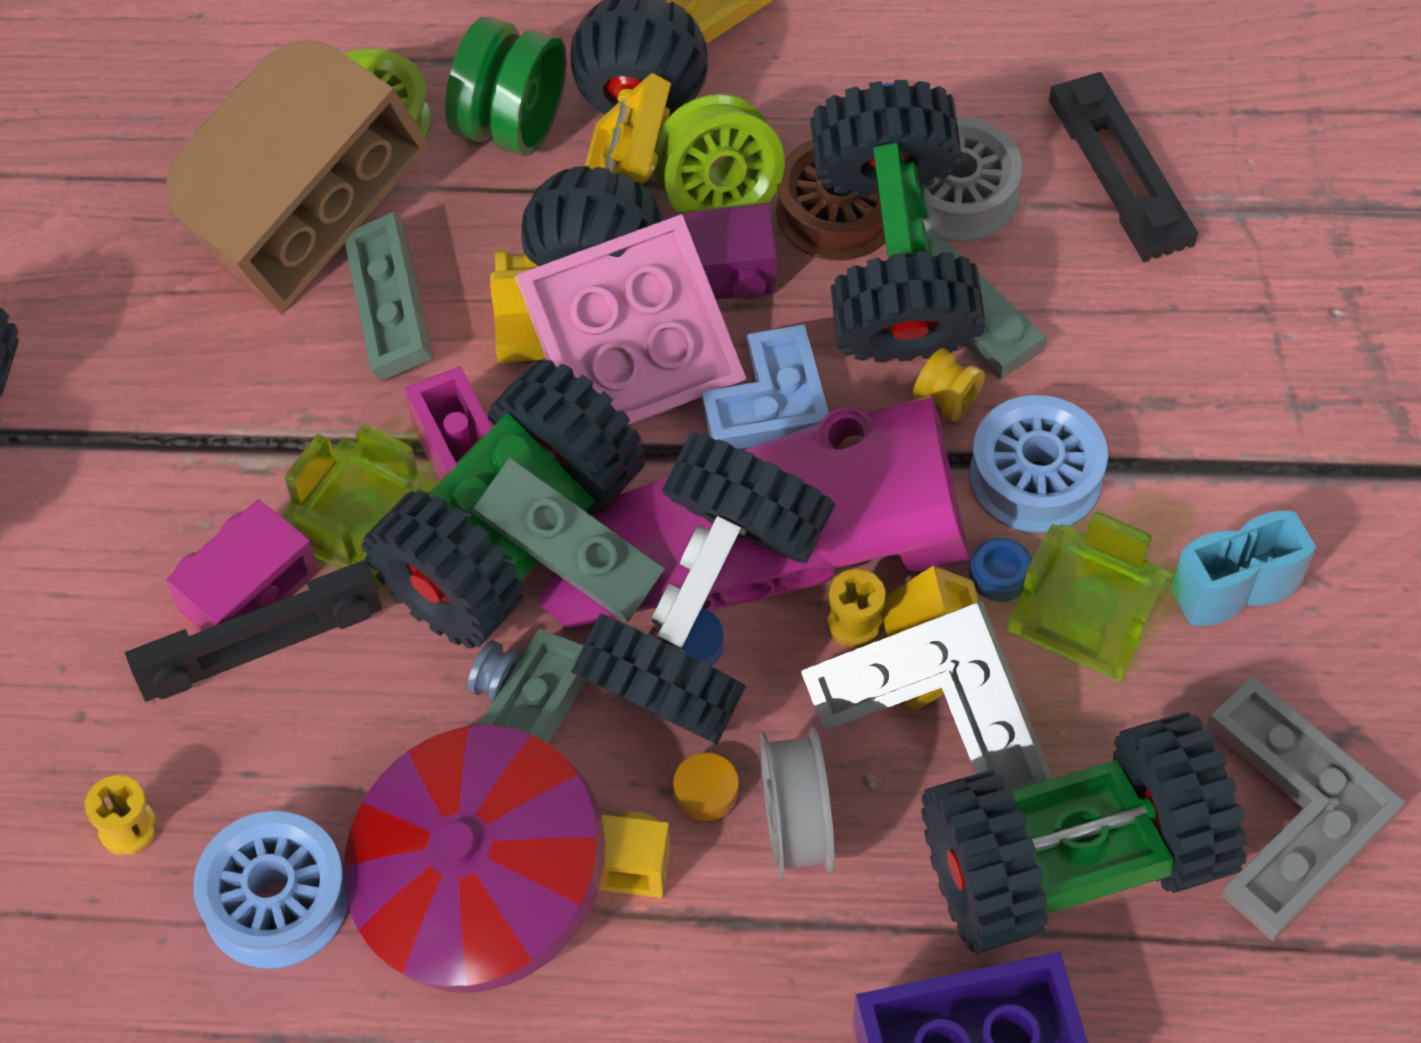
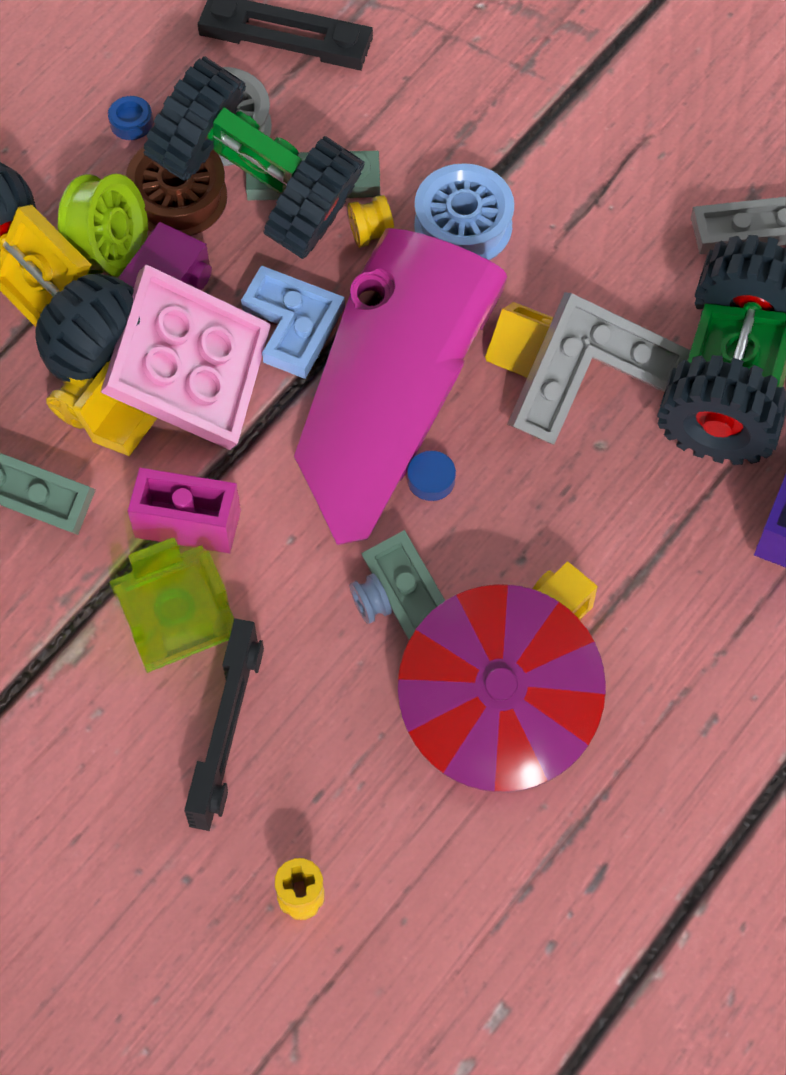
camera: 55 degrees left, 5 degrees up
(232, 850) = (439, 782): light blue wheel -> none
(243, 568) = (170, 706): dark pink brick -> none
(458, 567) = (281, 549): black plate -> none
(567, 540) = (331, 486): sand green plate -> none
(706, 787) = (540, 533): light orange tile -> none
(741, 500) = (426, 410): black plate -> none
(797, 803) = (608, 482): light grey wheel -> none
(855, 608) = (493, 372): yellow bush -> none
(999, 569) = (520, 283): blue tile -> none
(1091, 594) = (576, 246): clear neon green panel -> none
(1242, 568) = (625, 161): medium azure brick -> none

